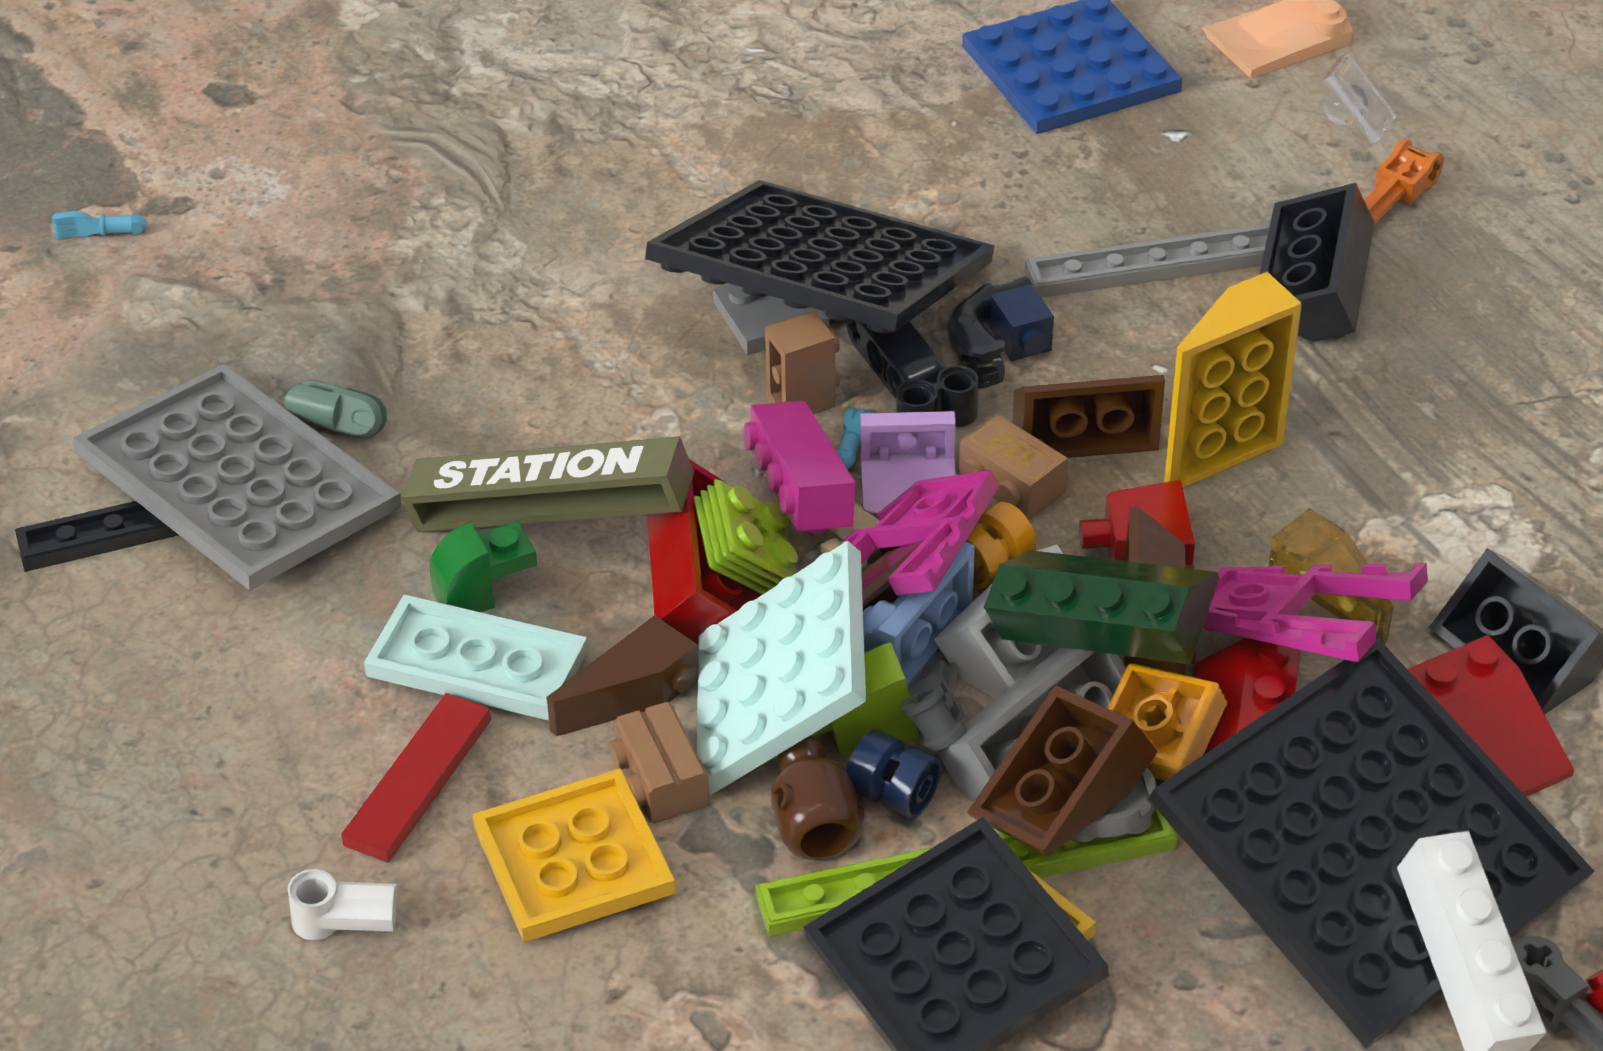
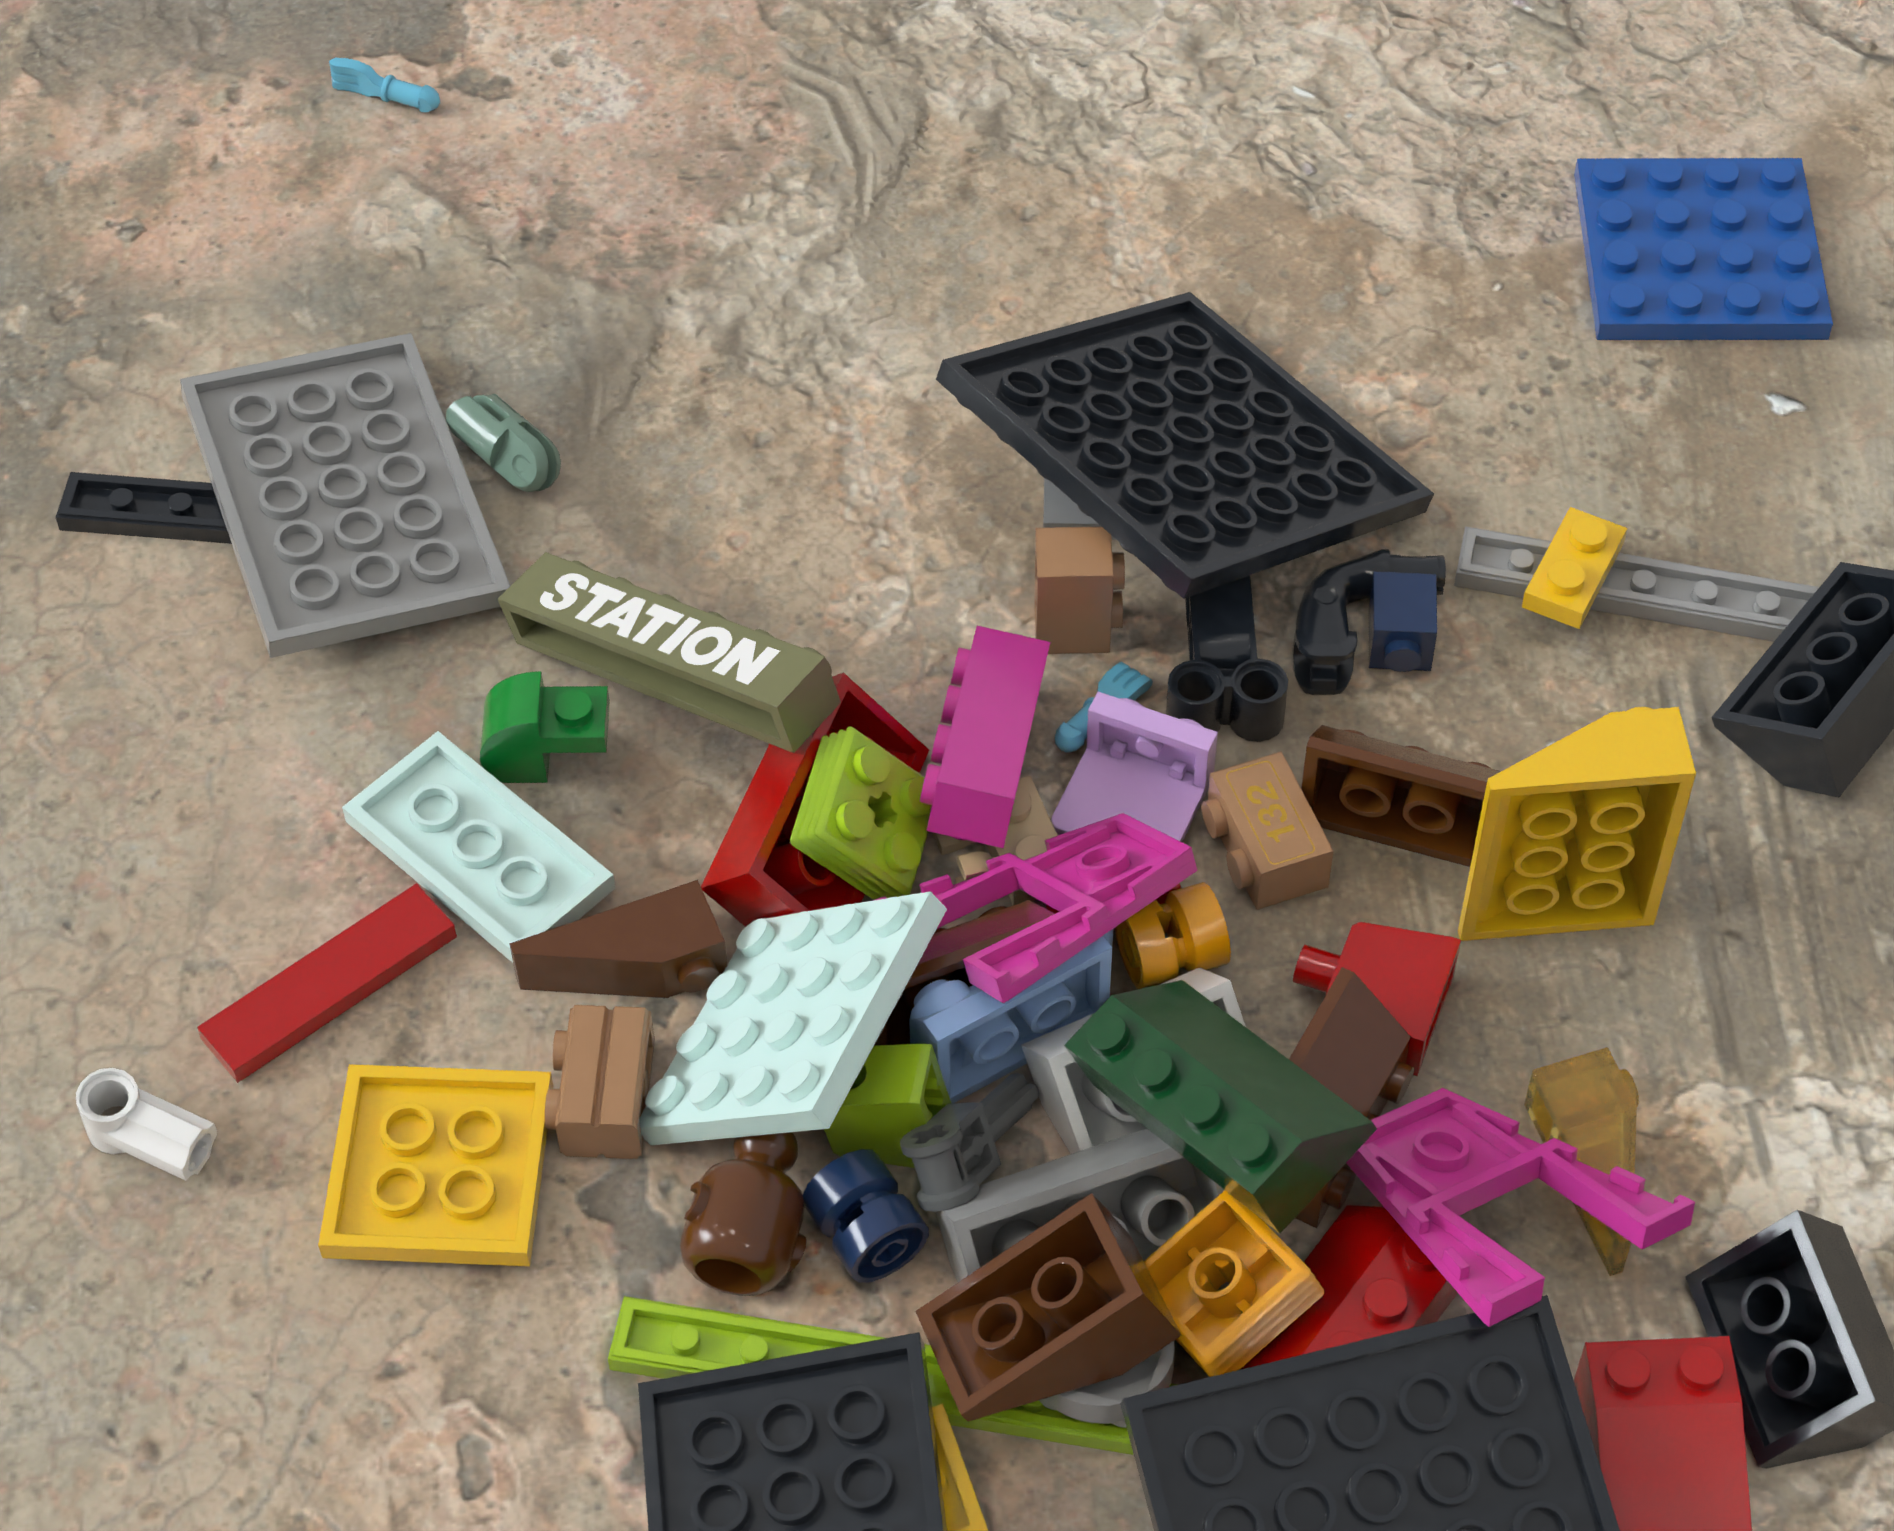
camera: 25 degrees right, 10 degrees up
(1112, 257) = (1574, 568): none -> yellow plate

